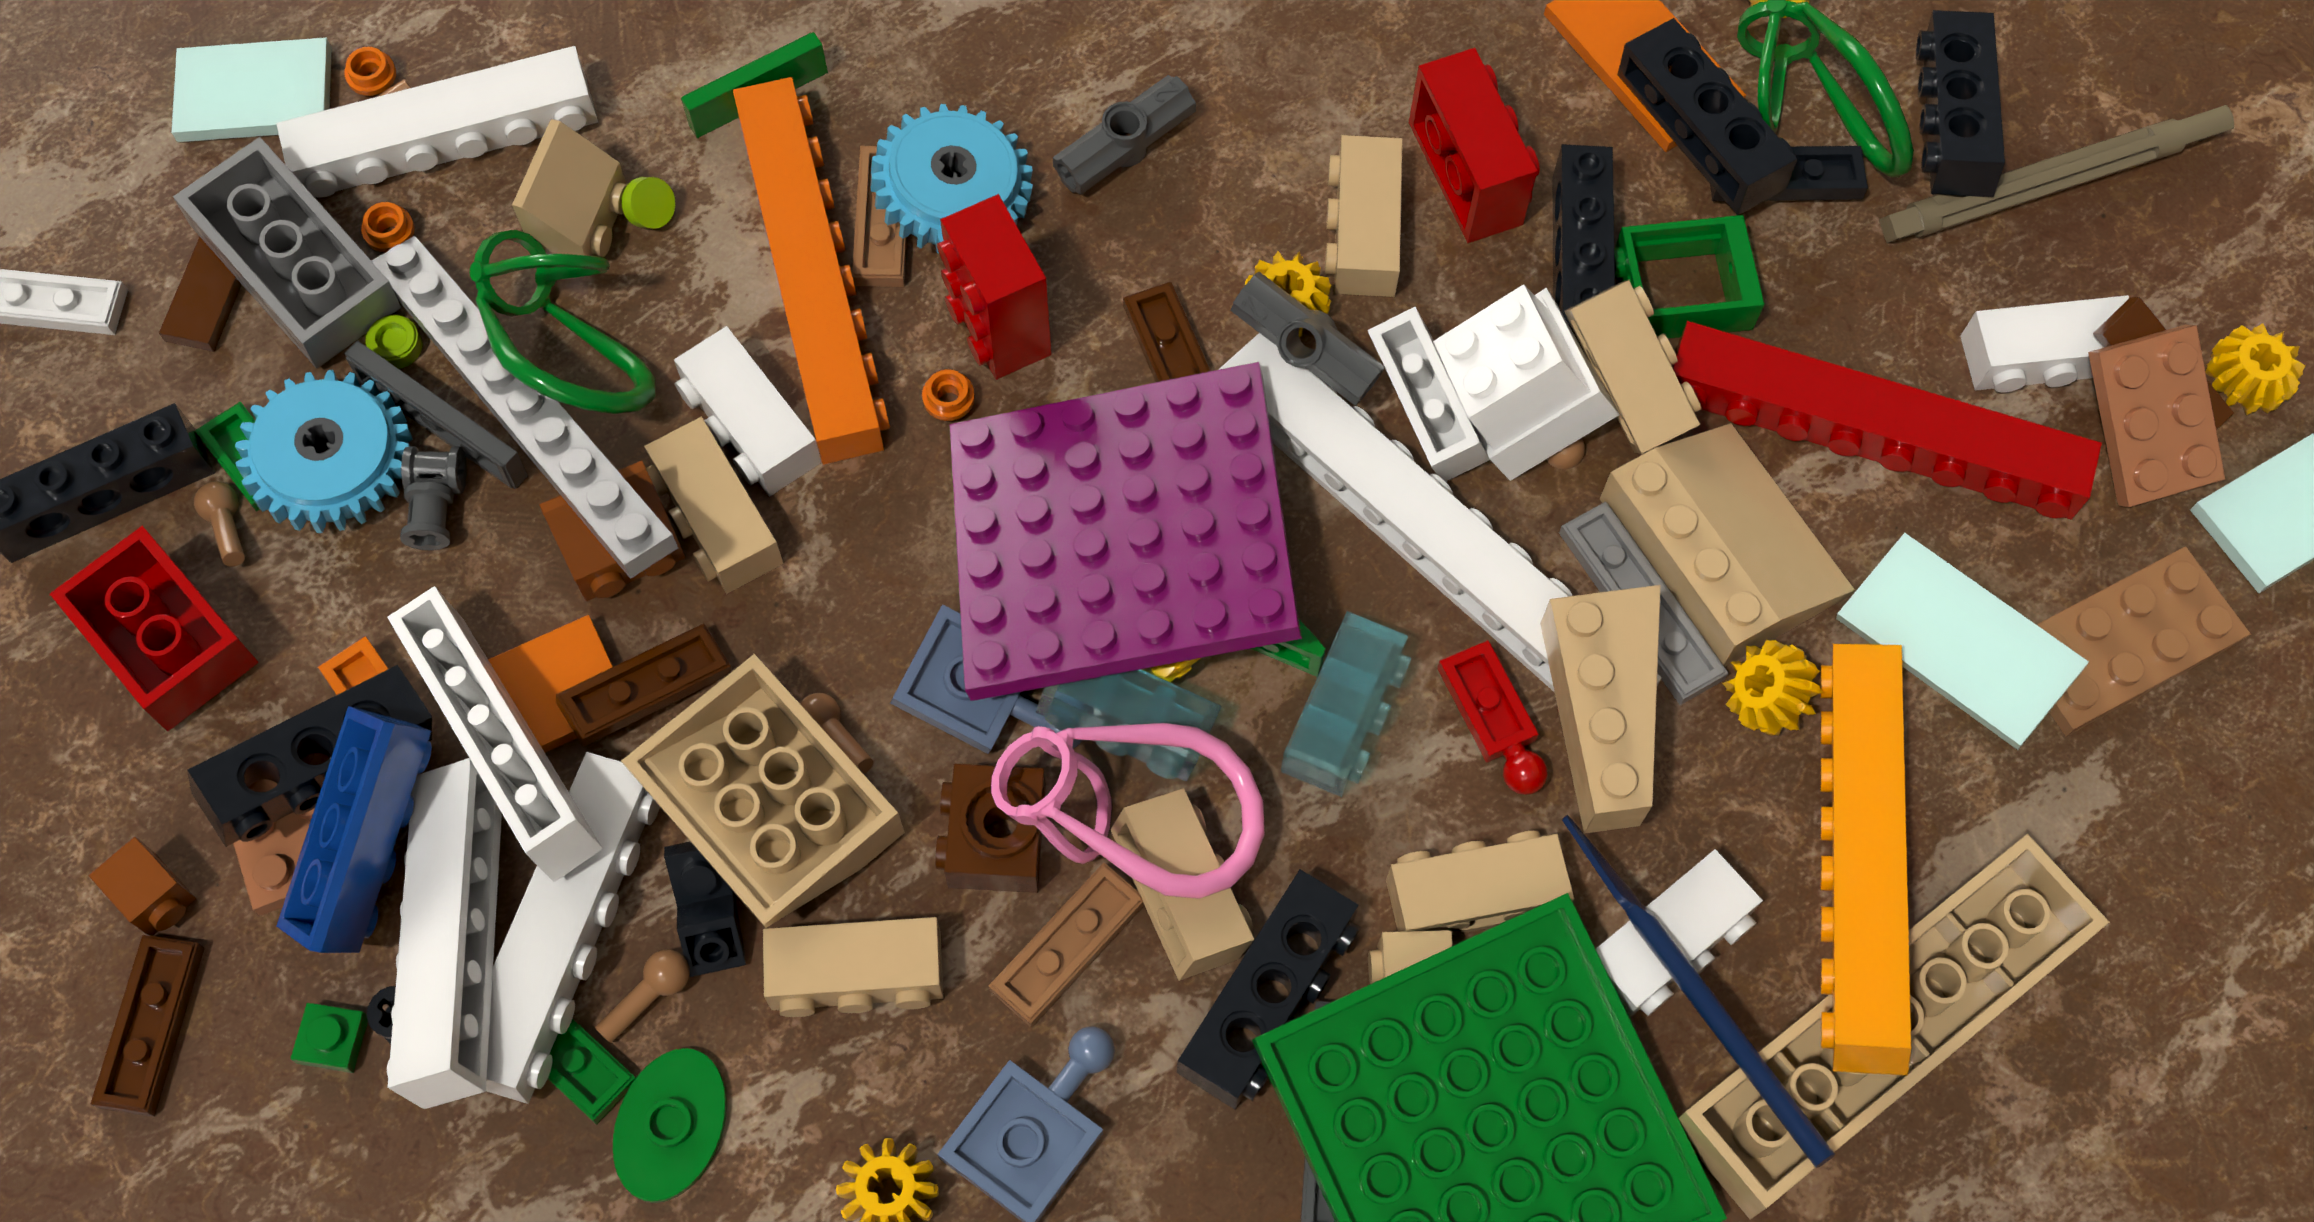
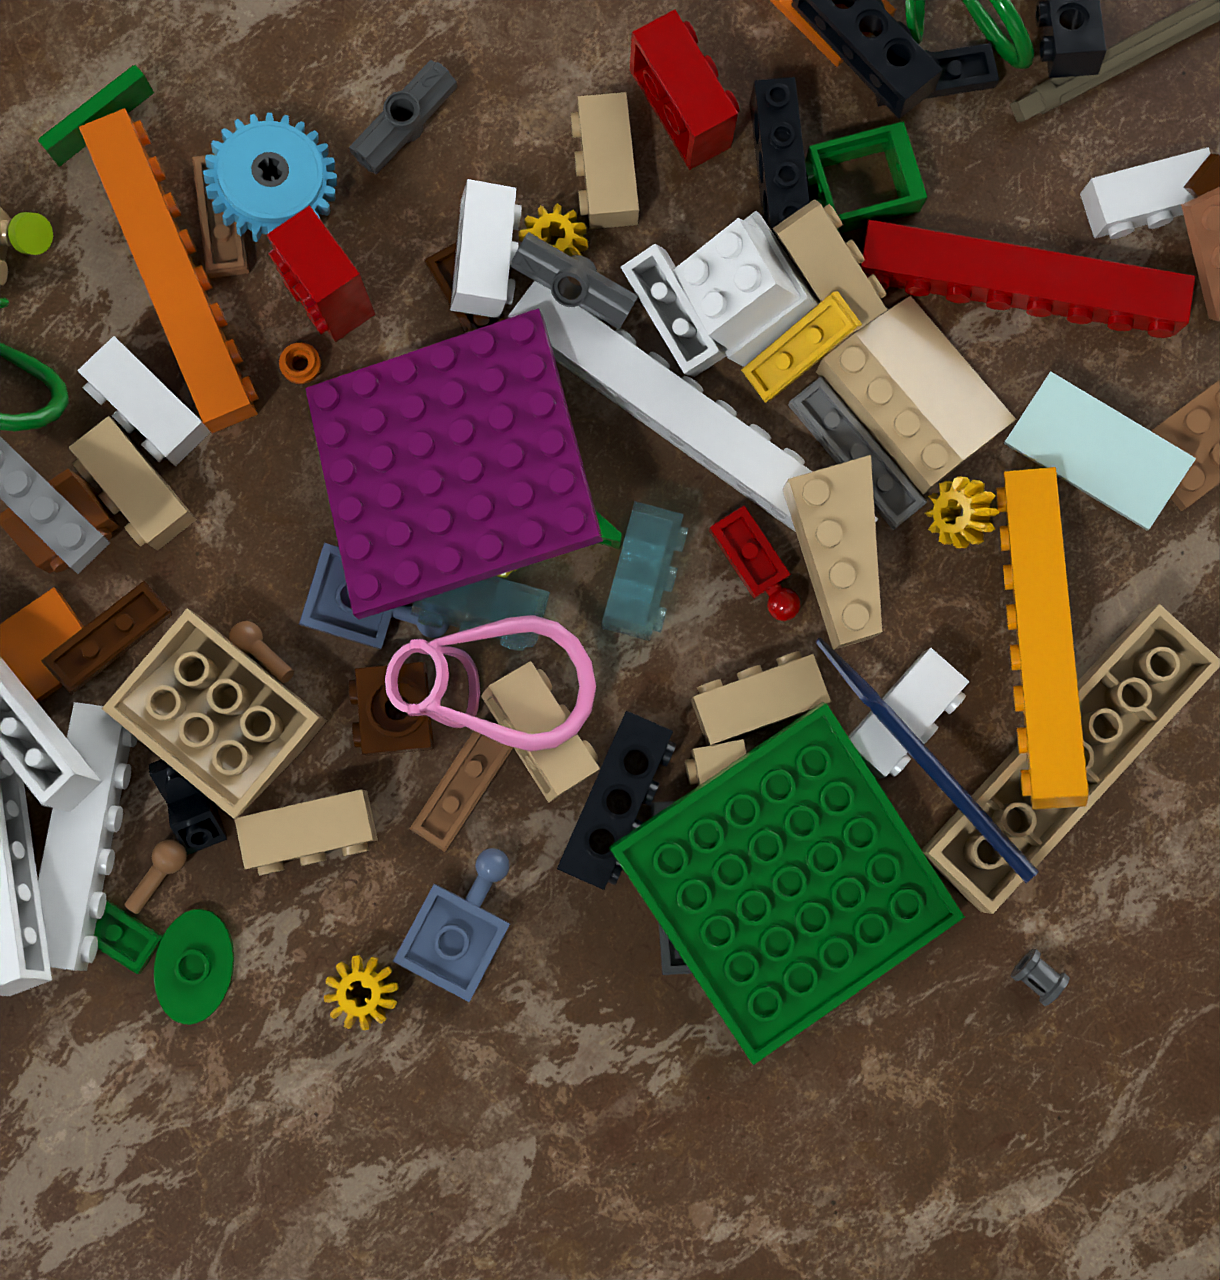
camera: 15 degrees left, 15 degrees up
(1201, 292) = (485, 249): none -> white brick
(1585, 456) = (801, 346): none -> yellow tile

